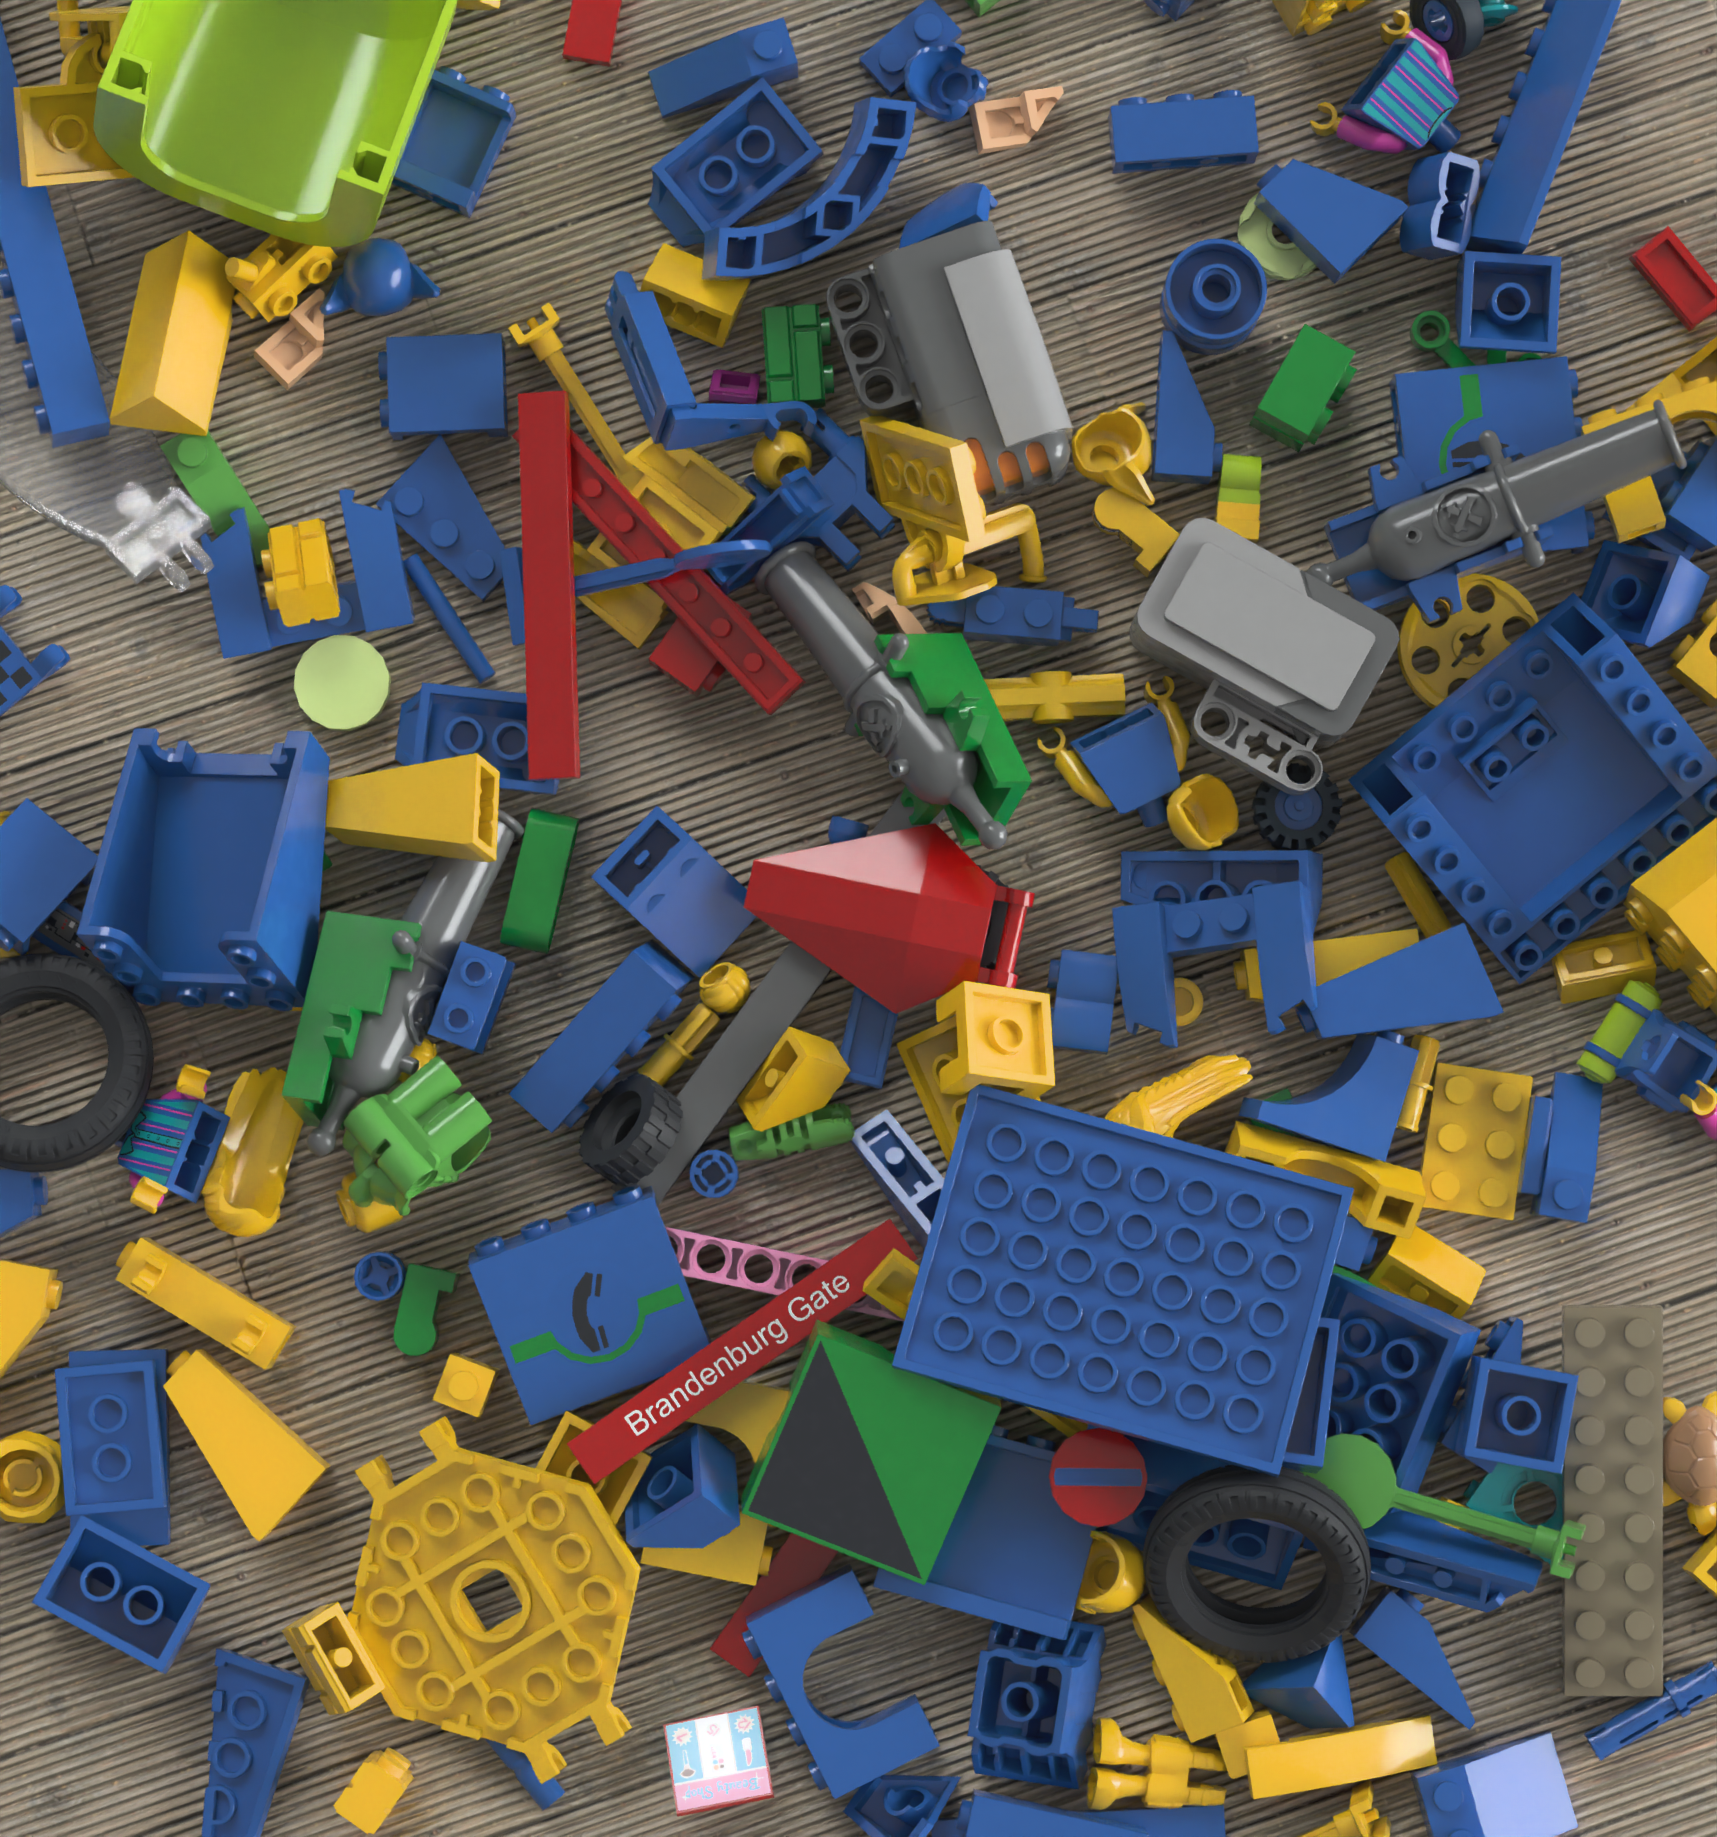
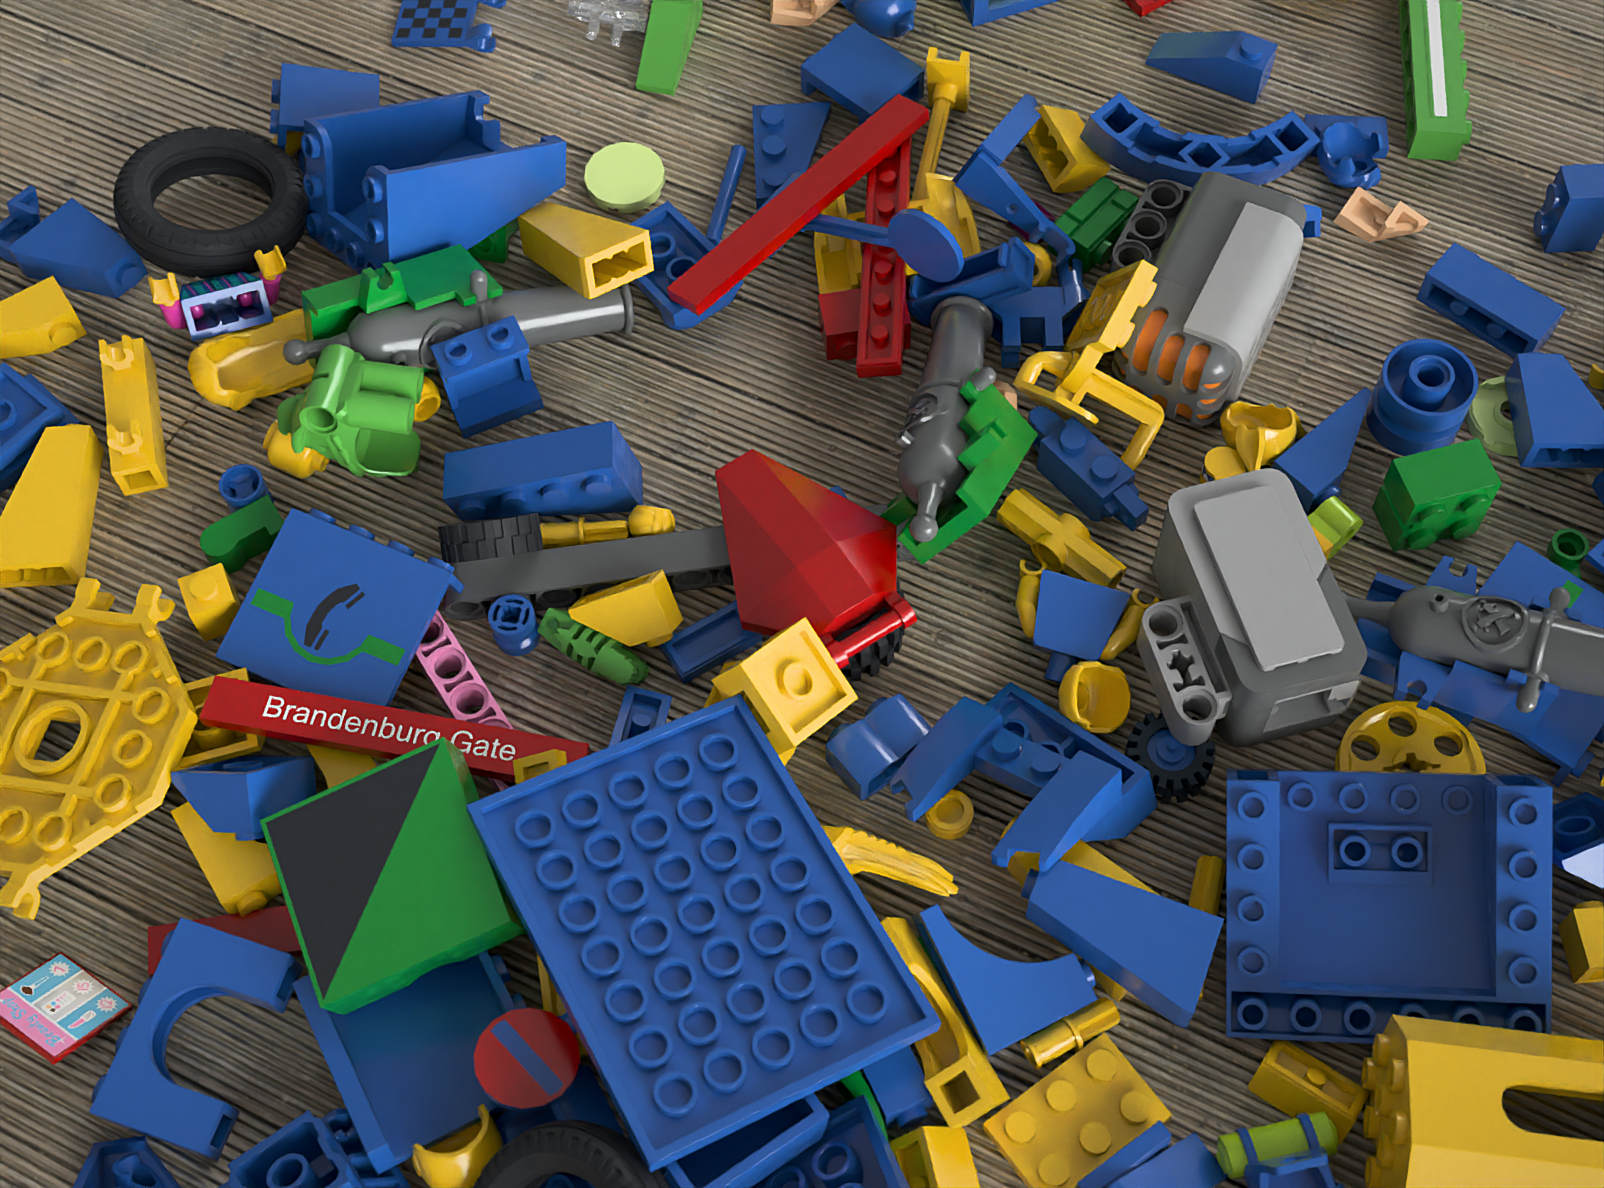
camera: 50 degrees right, 25 degrees down
(302, 573) = (666, 91): yellow brick -> none
(371, 602) = (693, 147): blue wedge -> none
(539, 880) = (610, 366): green beam -> none
(676, 891) = (684, 435): blue slope -> none
(731, 165) = (1174, 94): blue slope -> none

